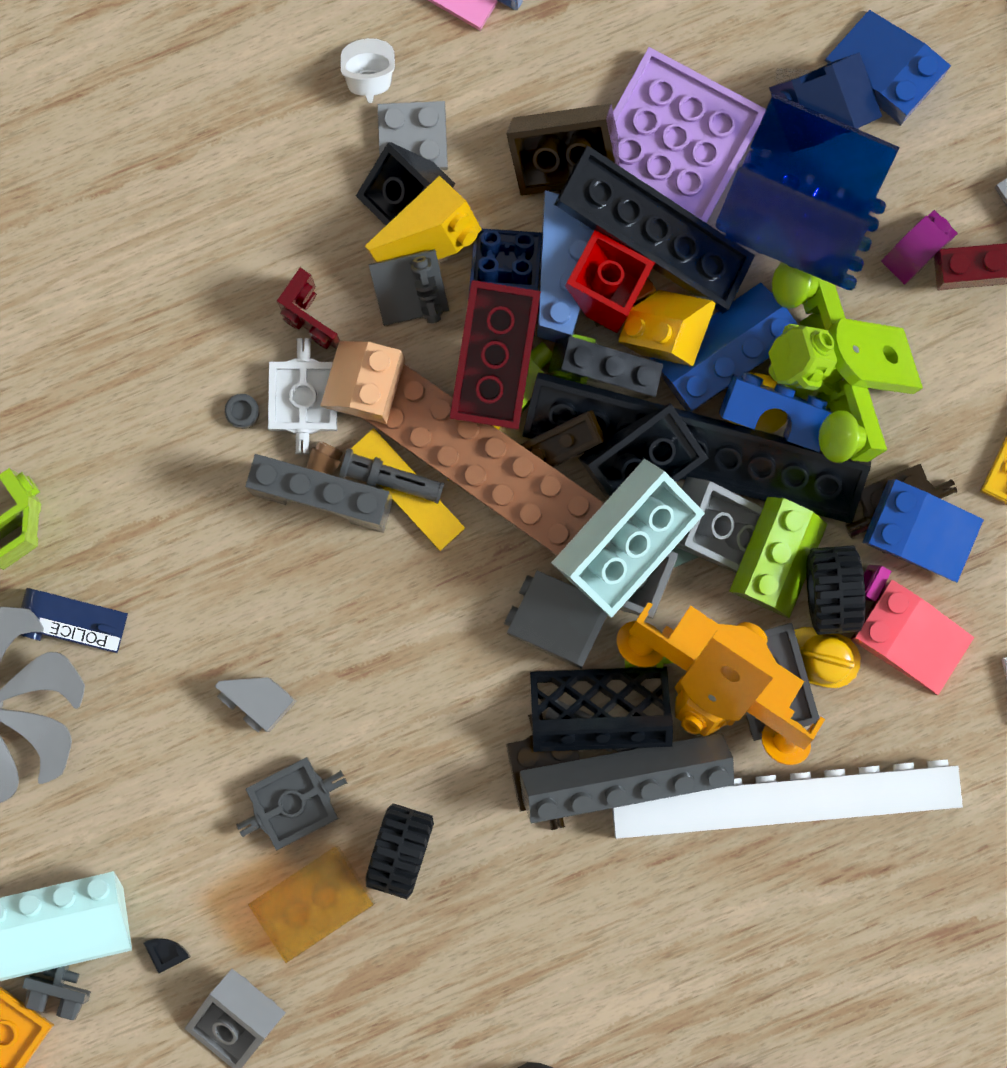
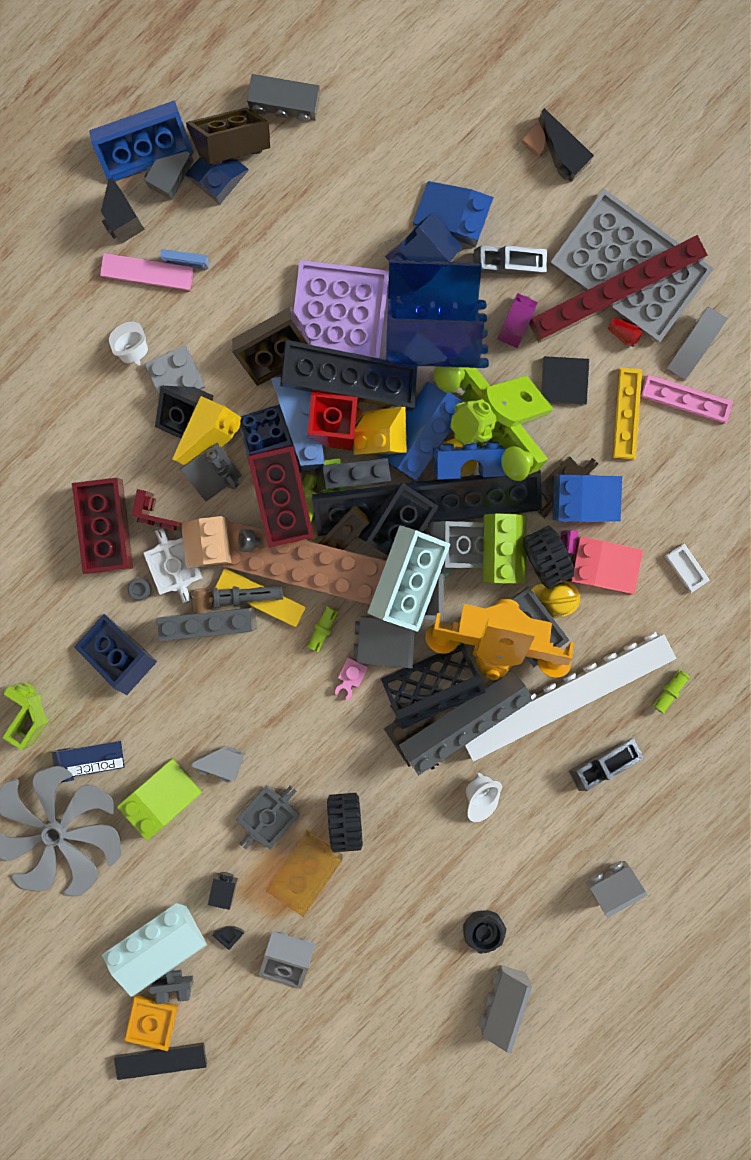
camera: 20 degrees left, 5 degrees up
(149, 716) = (159, 799): none -> lime slope
(171, 488) = (115, 655): none -> dark blue slope
(185, 882) = (222, 890): none -> black brick
(228, 302) = (102, 525): none -> dark red brick
(423, 400) = (247, 540): none -> dark grey tile
(476, 568) = (322, 629): none -> lime pin
(492, 649) = (351, 674): none -> bright pink plate
(609, 898) = (482, 797): none -> white piece
(804, 922) = (606, 765): none -> black slope
(937, 854) = (671, 691): none -> lime pin
(942, 161) = (511, 260): none -> dark grey slope
(955, 356) = (565, 380): none -> black tile

